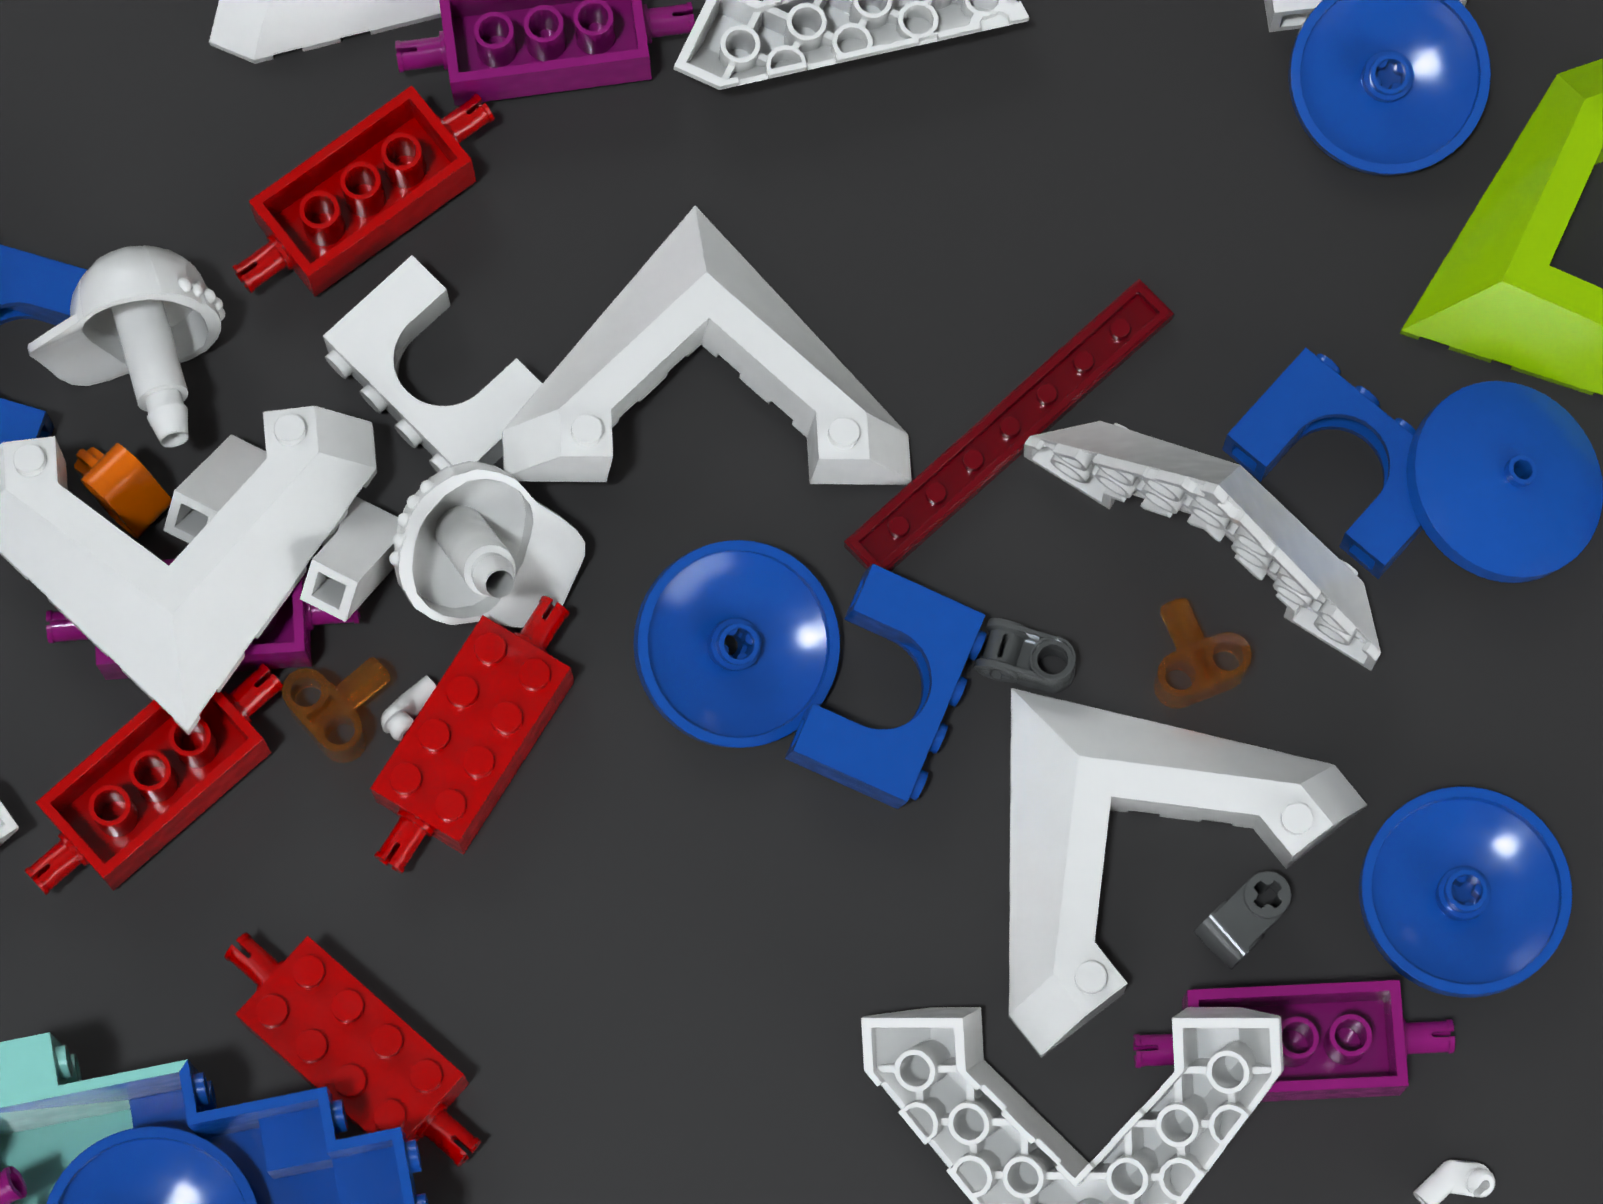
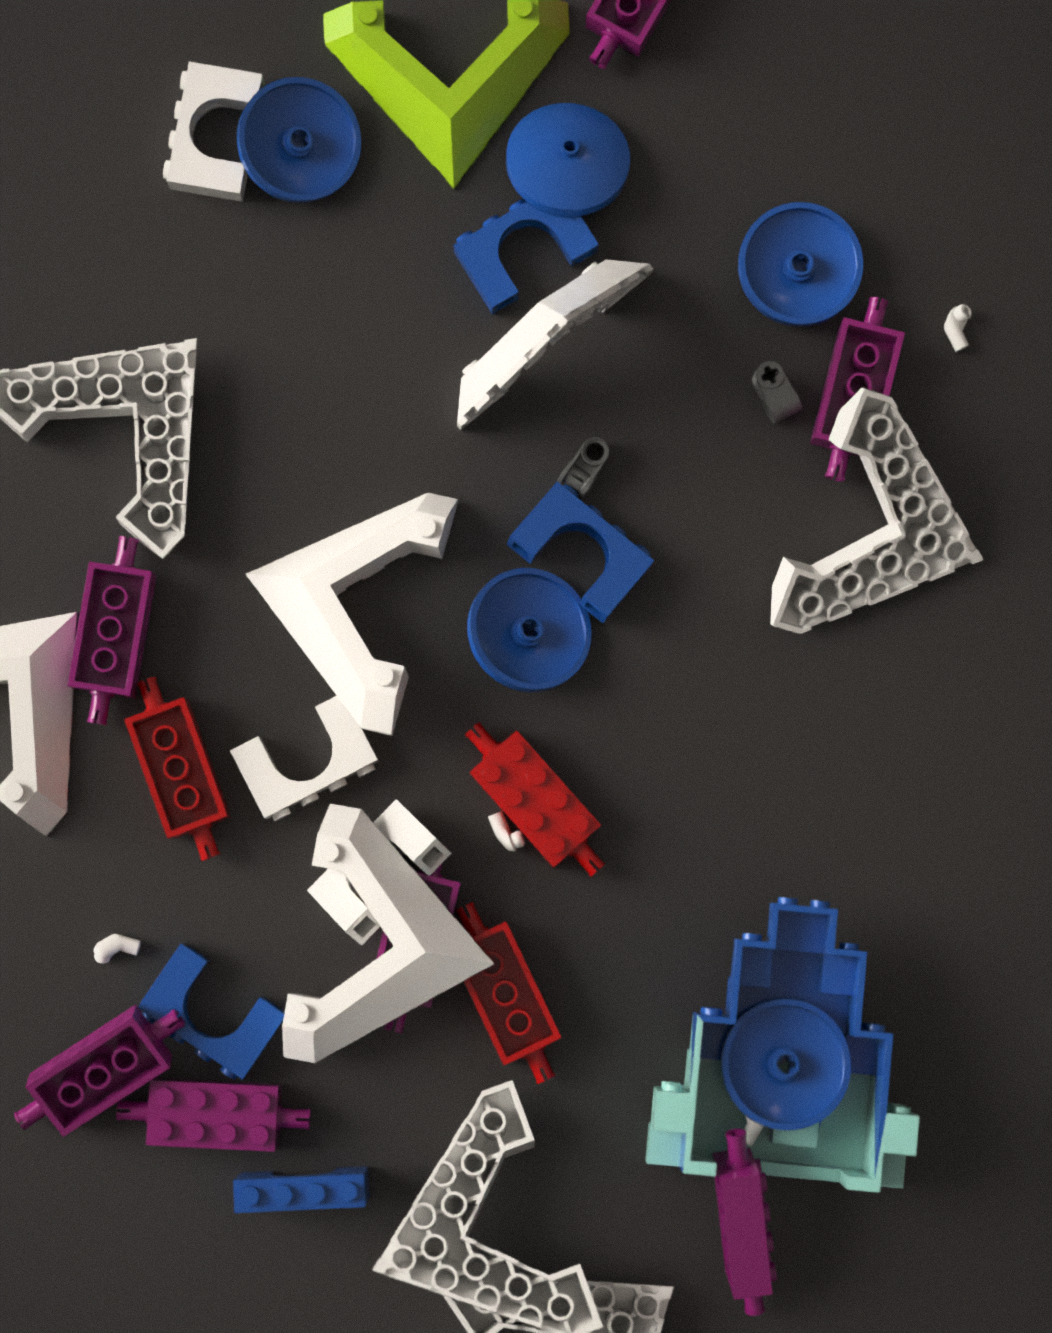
camera: 75 degrees left, 10 degrees up
(75, 188) = (113, 944): none -> white arm
(123, 487) = (318, 965): orange beam -> none
(138, 317) = (218, 922): white piece -> none
(335, 706) = (490, 872): clear orange beam -> none
(351, 1043) = (700, 921): red brick -> none
(482, 548) = (428, 761): white piece -> none
(1003, 431) = (443, 433): dark red tile -> none
(1064, 780) = (664, 466): white wedge -> none
(1195, 658) = (615, 369): clear orange beam -> none

